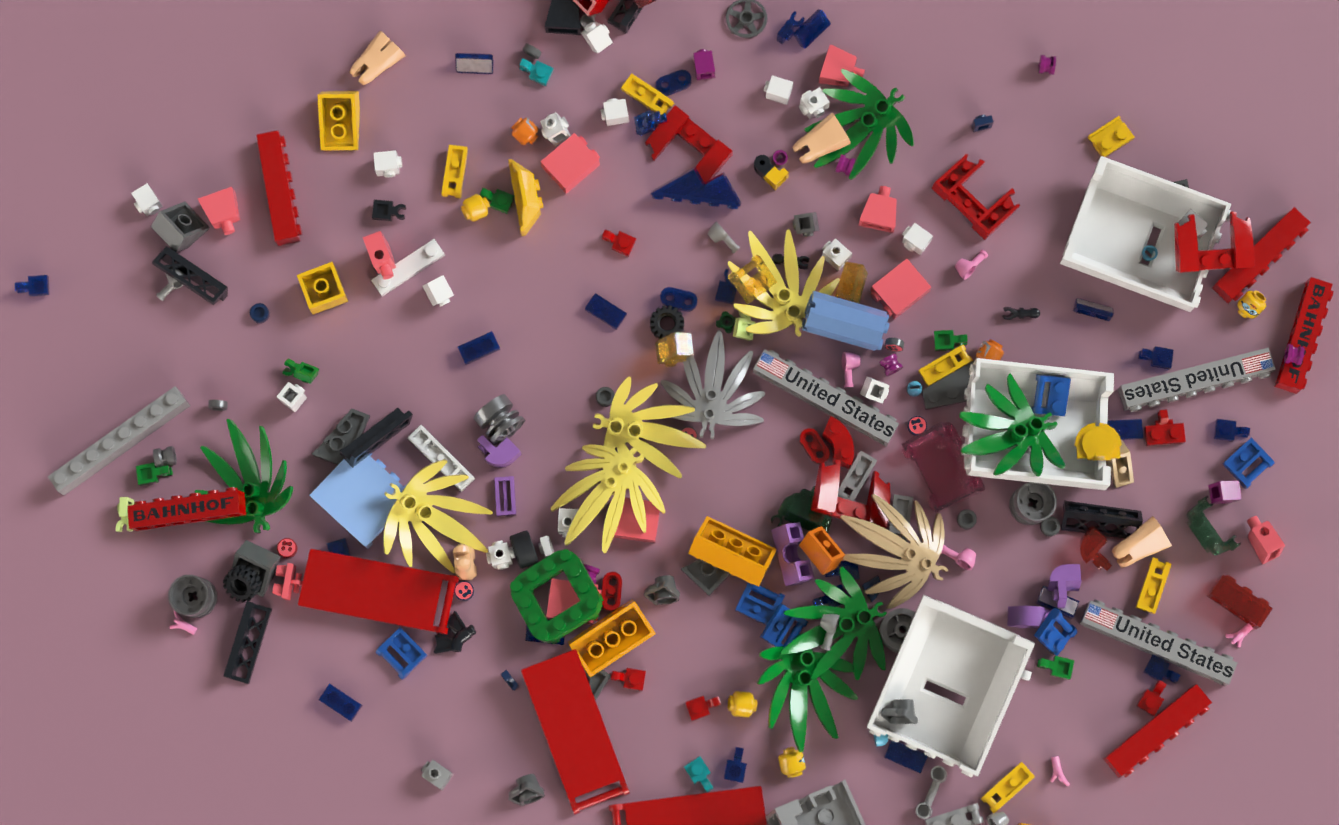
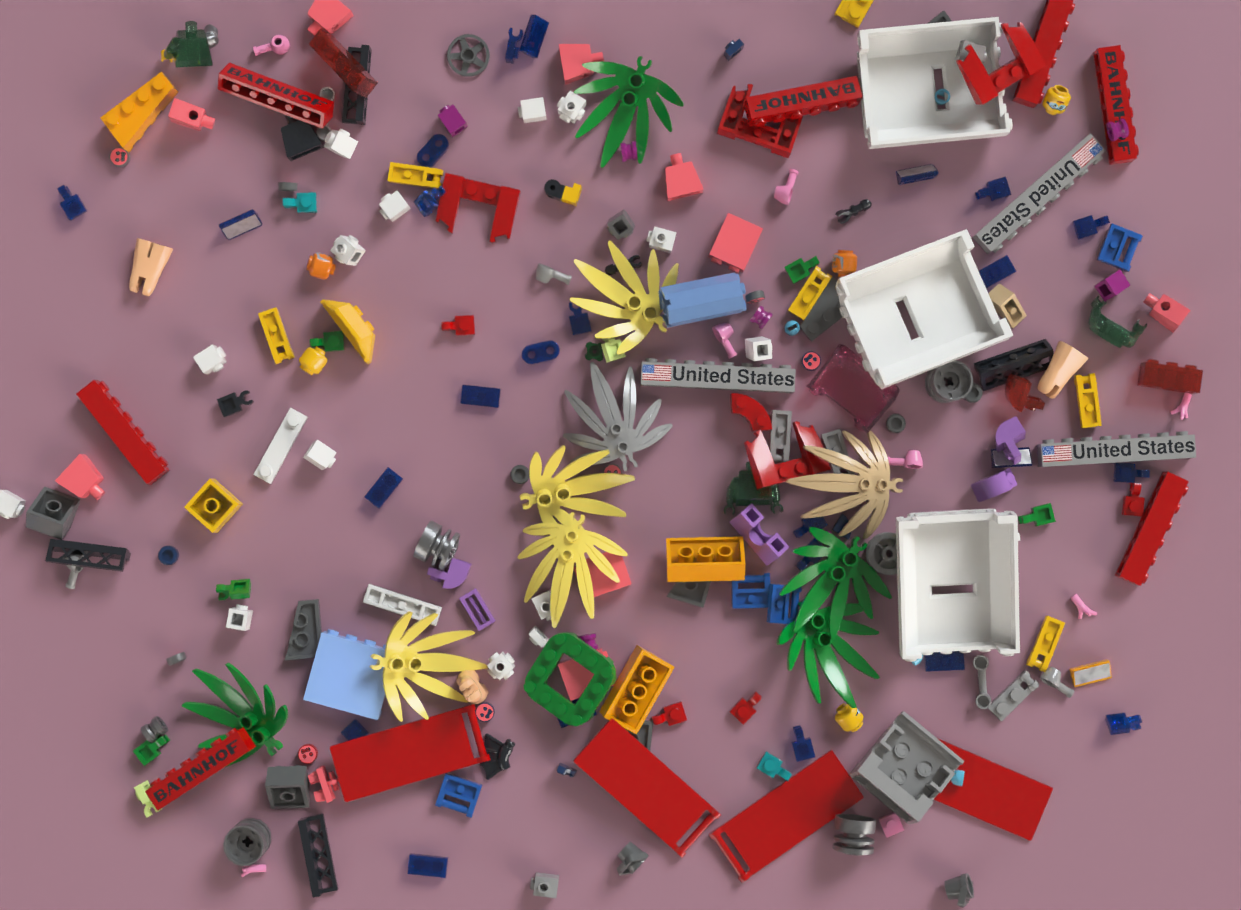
camera: 30 degrees left, 10 degrees up
(119, 441) = (105, 736): light grey brick -> none
(236, 589) = (285, 807): black tyre -> none
(339, 120) = (144, 340): yellow slope -> none
(376, 436) = (334, 617): black fence -> none
(380, 254) = (250, 449): coral torso -> none
(524, 549) = (519, 650): black tyre -> none
(570, 162) = (378, 274): coral brick -> none
(610, 591) = (615, 646): red plate -> none
(664, 590) = (661, 624): dark grey piece -> none
(666, 312) = (541, 368): black tyre -> none
(674, 348) = (561, 402): clear yellow brick -> none
(692, 187) = (501, 243): clear blue slope -> none
(741, 704) = (780, 688): yellow head -> none
(757, 283) = (605, 305): clear yellow plate -> none
(783, 160) = (569, 175): magenta hinge -> none
(815, 446) = (729, 426): red plate -> none
(822, 139) = (596, 138): light nougat piece -> none
(822, 550) = (784, 519): orange brick -> none
(829, 623) = (822, 580): light grey bar -> none
(852, 282) = (689, 260): clear yellow brick -> none
(901, 713) = (925, 628): dark grey piece -> none
(916, 238) = (726, 189): white brick -> none
(1022, 195) = (802, 101): none -> red brick
(1023, 431) = (911, 324): green plant -> none
(1050, 636) = (1021, 493): blue plate -> none
(1057, 394) = (924, 274): blue plate -> none
(1098, 442) = (981, 299): yellow piece -> none
(1164, 431) = (1032, 255): red hinge -> none

